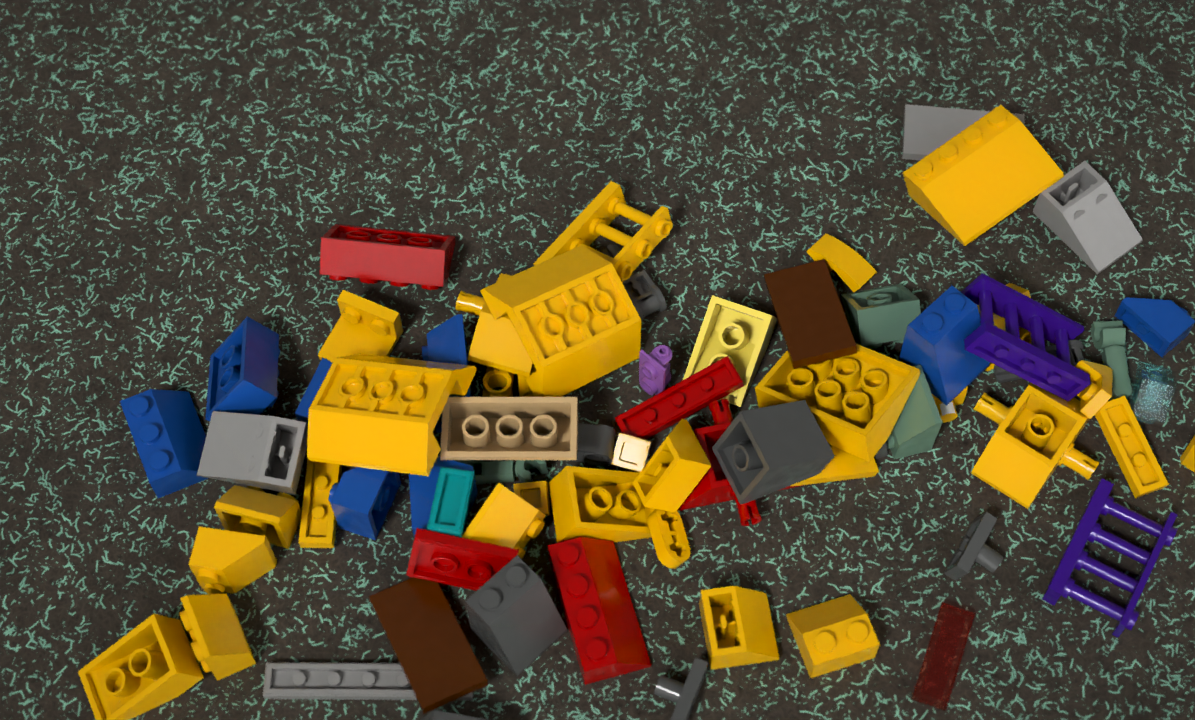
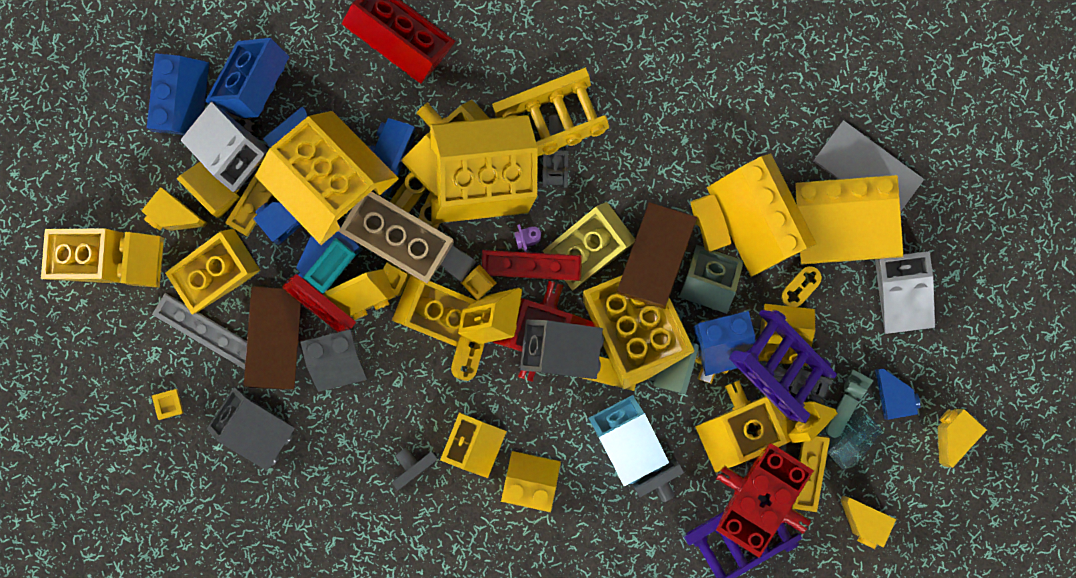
camera: 25 degrees right, 25 degrees up
(311, 603) = (212, 270): none -> yellow slope
(362, 329) = (343, 90): yellow bracket -> none
(597, 608) = (393, 379): red slope -> none
(890, 220) = (761, 214): none -> yellow slope
(912, 522) = (629, 440): none -> slope
(943, 656) = (593, 535): clear red tile -> none
(971, 267) = (805, 291): none -> yellow beam
(1107, 485) = (782, 480): none -> red slope

